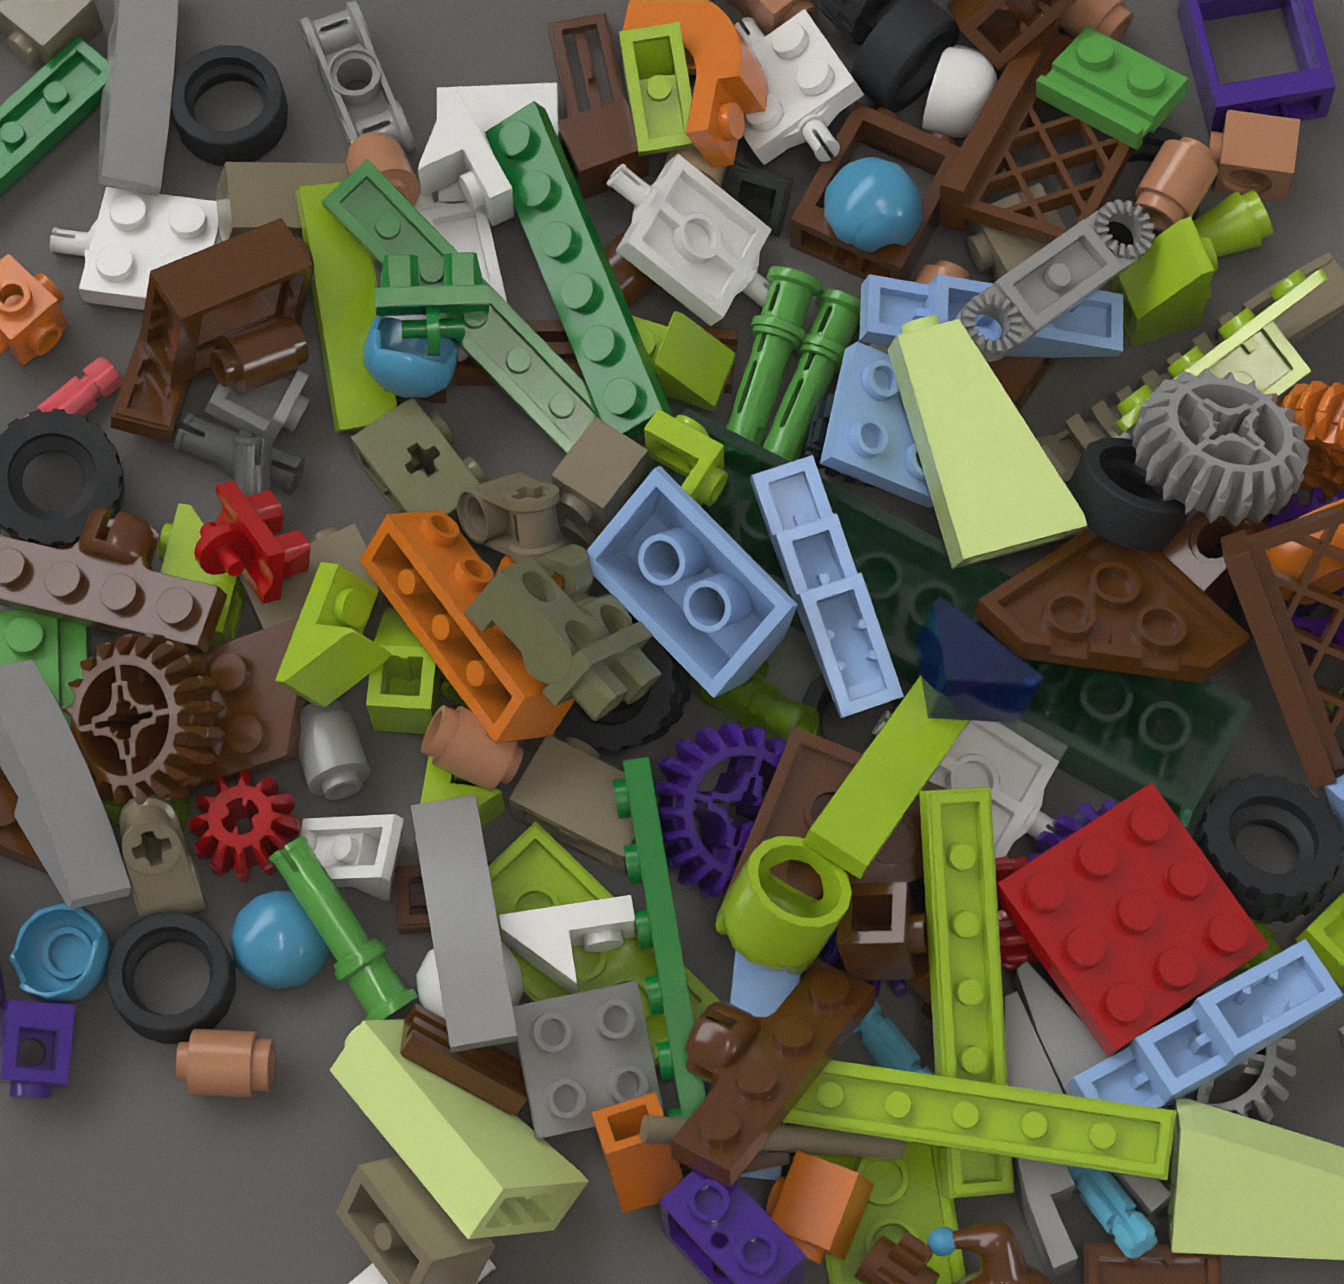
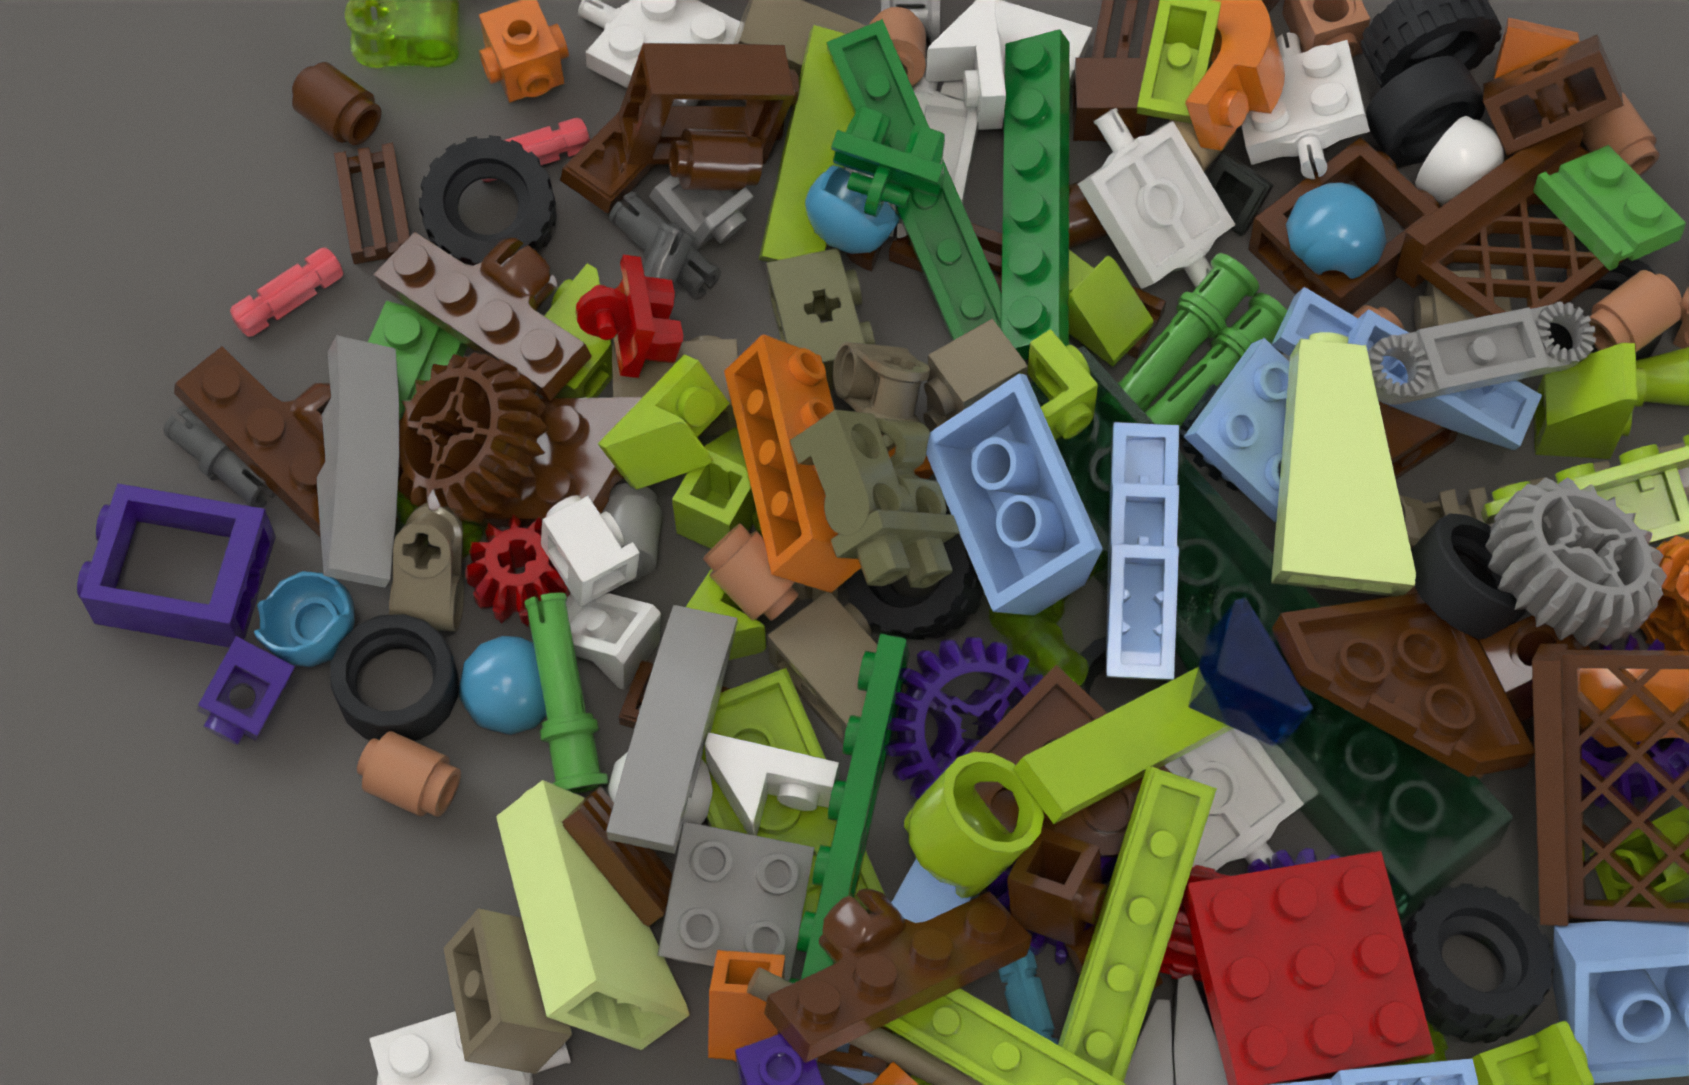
camera: 20 degrees right, 5 degrees down
(306, 784) = (587, 549): none -> white brick

